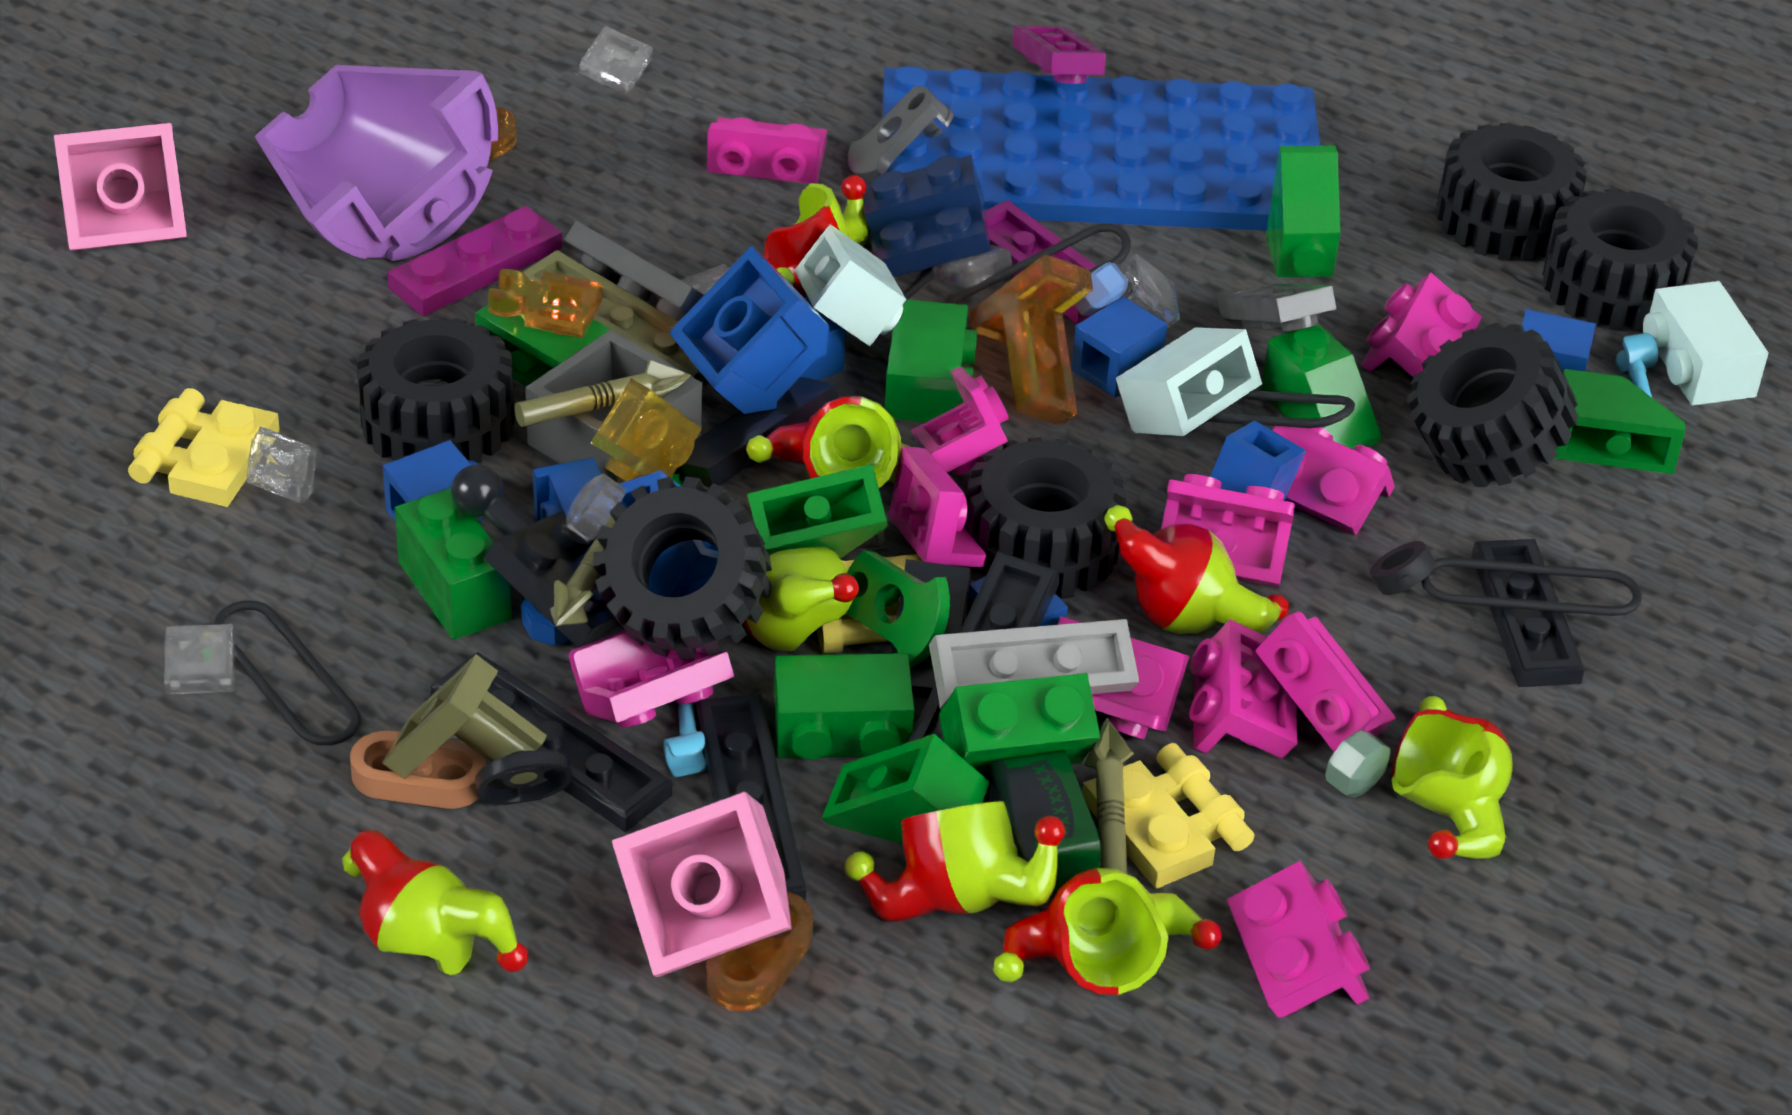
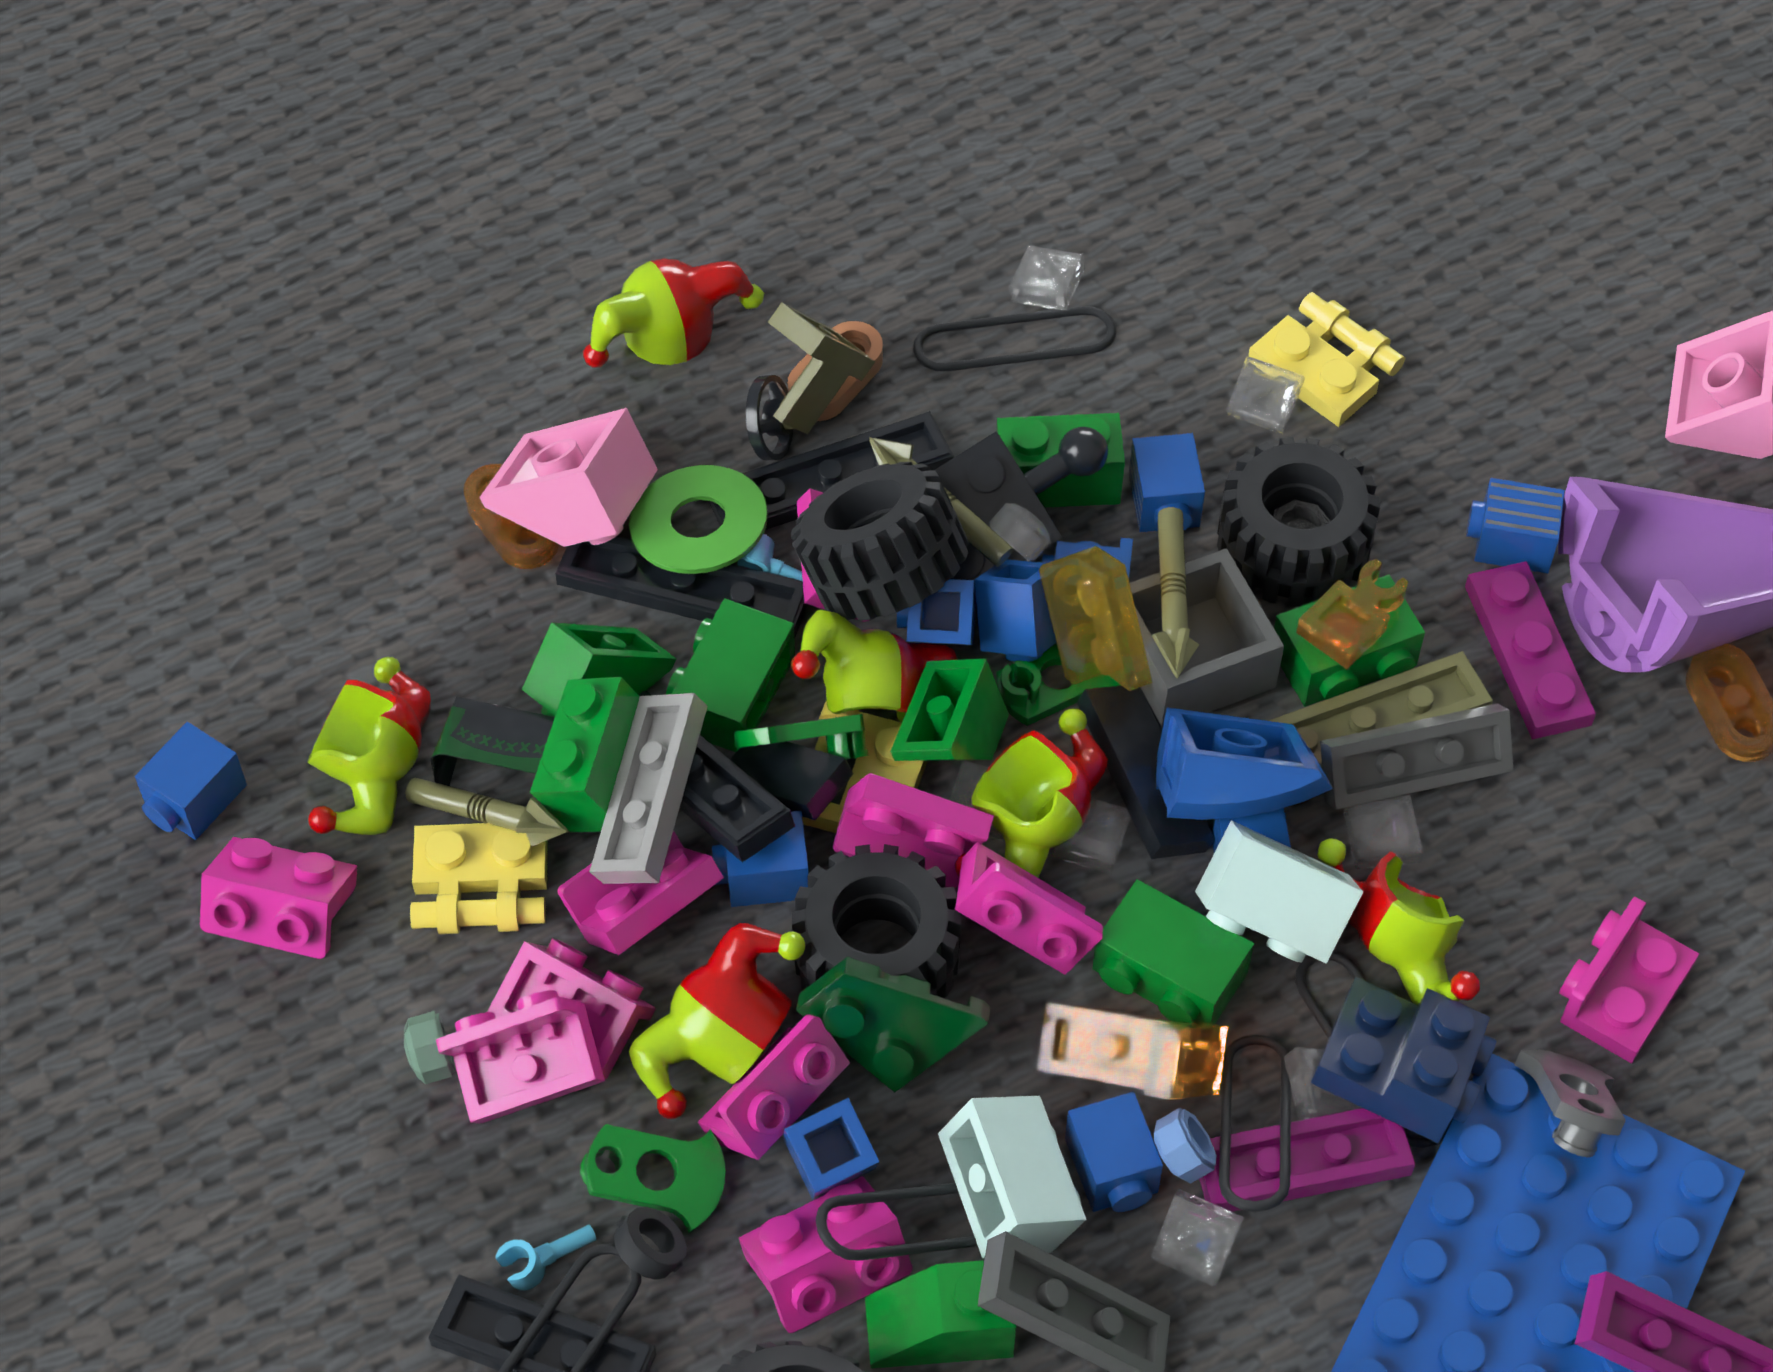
camera: 120 degrees right, 15 degrees up
(354, 277) = (1516, 524): none -> blue brick
(641, 765) = (740, 532): none -> bright green gear
(961, 864) = (486, 660): piece -> none
(1139, 468) = (889, 1019): none -> dark green wing
(1246, 1055) = (189, 782): none -> blue brick
(1358, 609) = (696, 1166): none -> green piece
(1459, 771) = (364, 1120): lime piece -> none
(1473, 646) = (540, 1256): none -> medium azure hand

